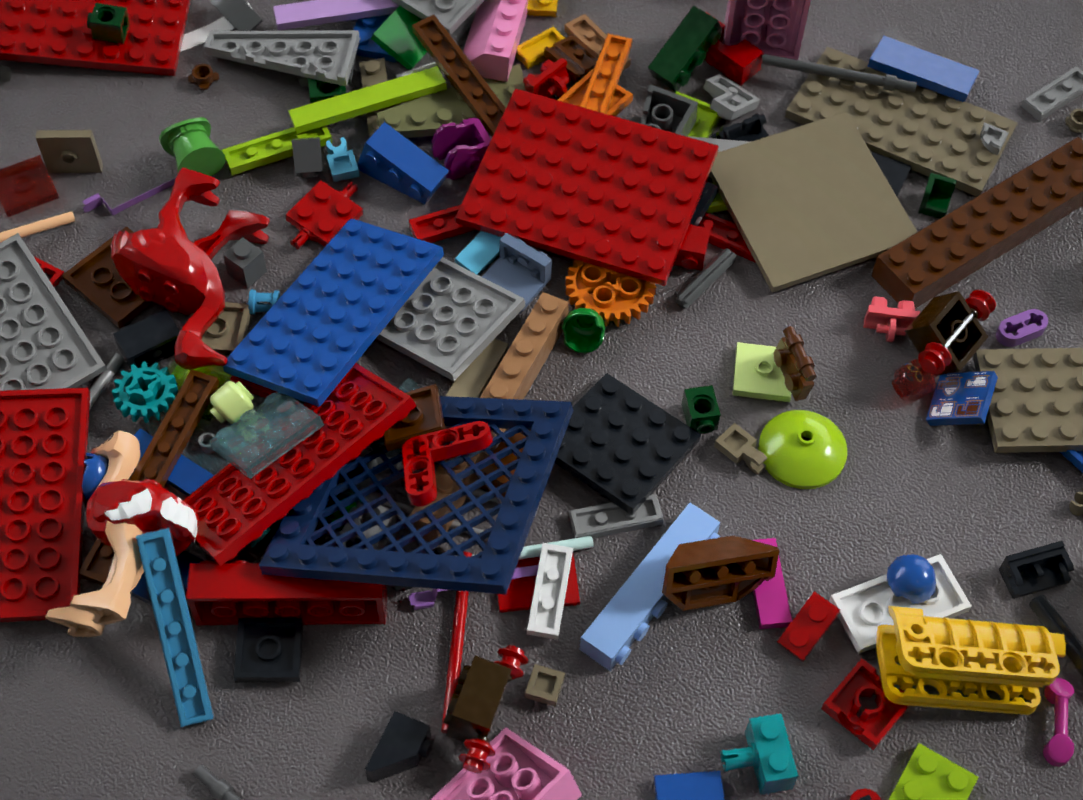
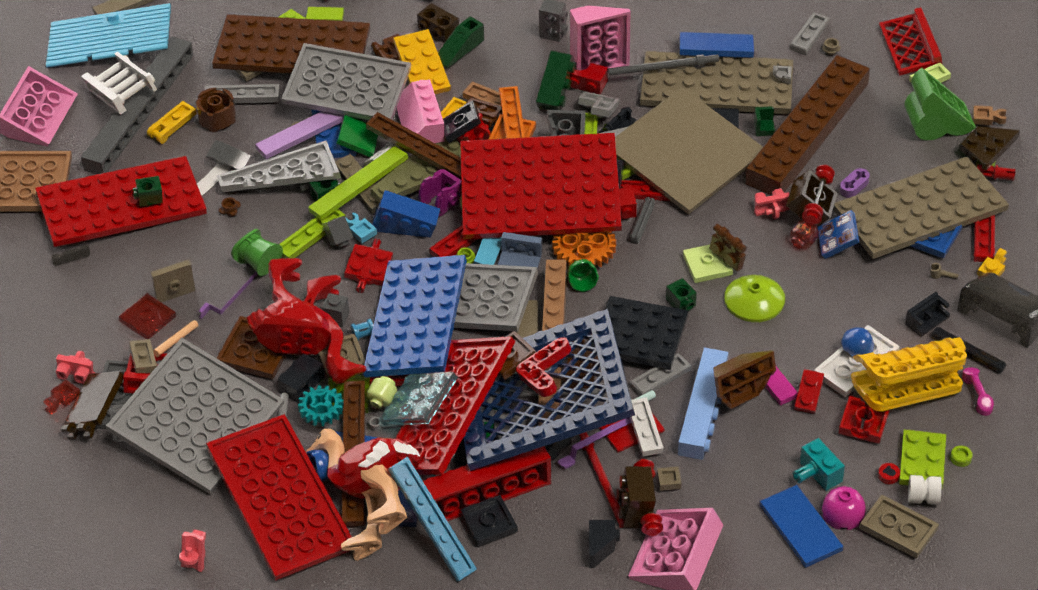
camera: 20 degrees left, 10 degrees down
(451, 242) = (470, 256): none -> lime plate
(536, 62) = (461, 121): none -> black tile
(740, 445) = (715, 308): dark tan plate -> none

